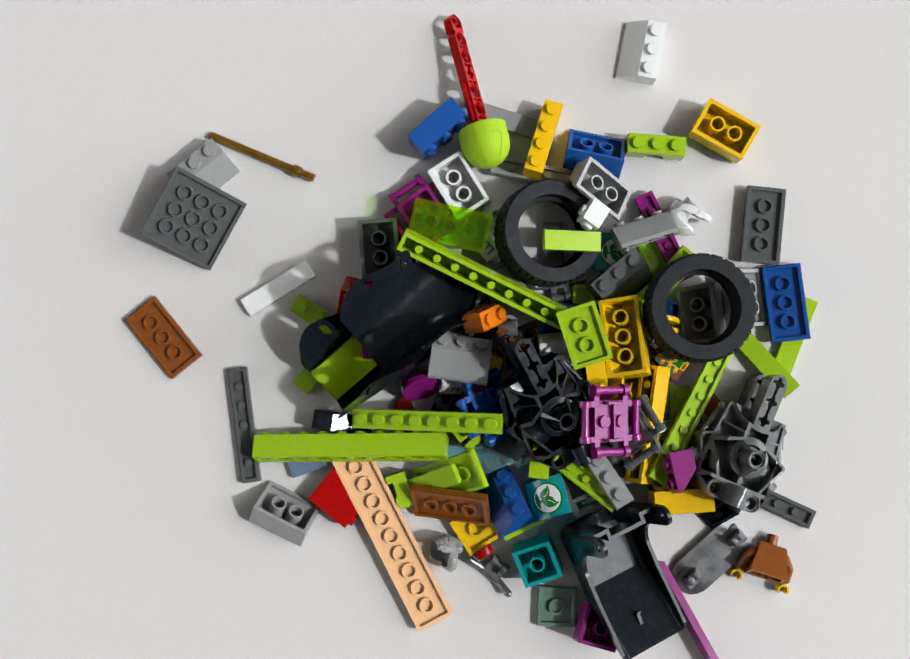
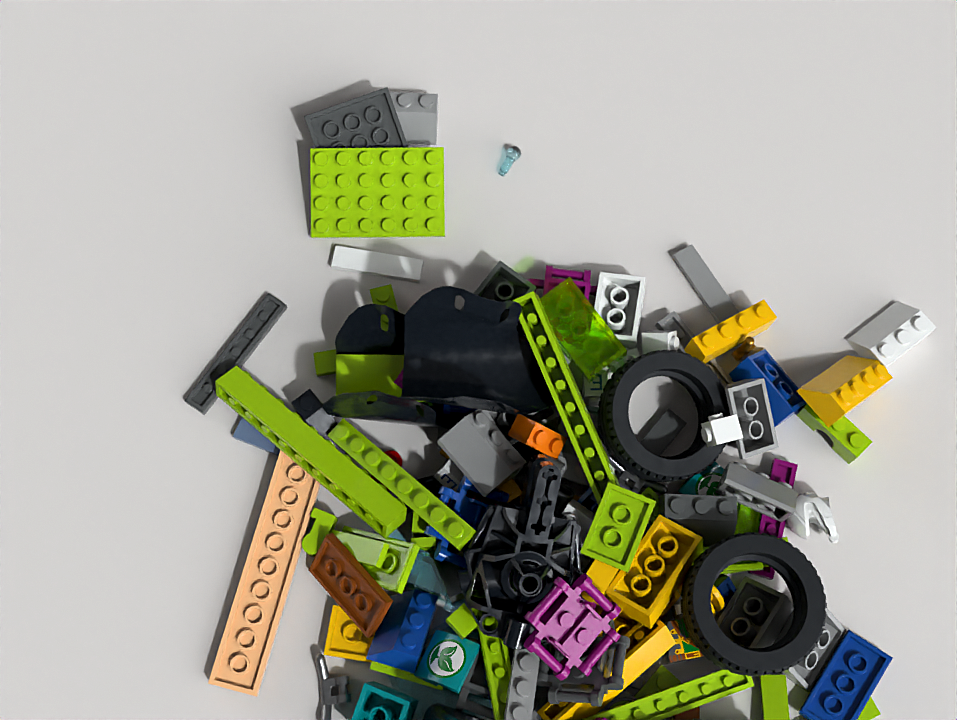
camera: 35 degrees right, 15 degrees down
(163, 337) = (241, 222): dark orange tile -> none
(234, 241) = (377, 192): none -> lime plate
(284, 513) = (195, 460): light grey slope -> none
(295, 170) = (484, 180): pearl gold bar -> none
(297, 135) = (513, 154): none -> clear light blue piece
(334, 500) = (249, 487): red slope -> none
(418, 386) = (421, 453): magenta tile -> none
(437, 129) = (641, 246): blue brick -> none
(446, 550) = (306, 628): light grey hair -> none
(483, 552) = (339, 662): red tile -> none
(485, 140) = (677, 285): piece -> none
(503, 185) = (659, 340): none -> white brick
(558, 142) = (746, 347): none -> pearl gold bar
(571, 240) = (681, 436): lime tile -> none
(642, 116) = (843, 387): none -> yellow slope
(723, 131) = (914, 468): yellow brick -> none
(762, 225) = (882, 590): dark grey plate -> none

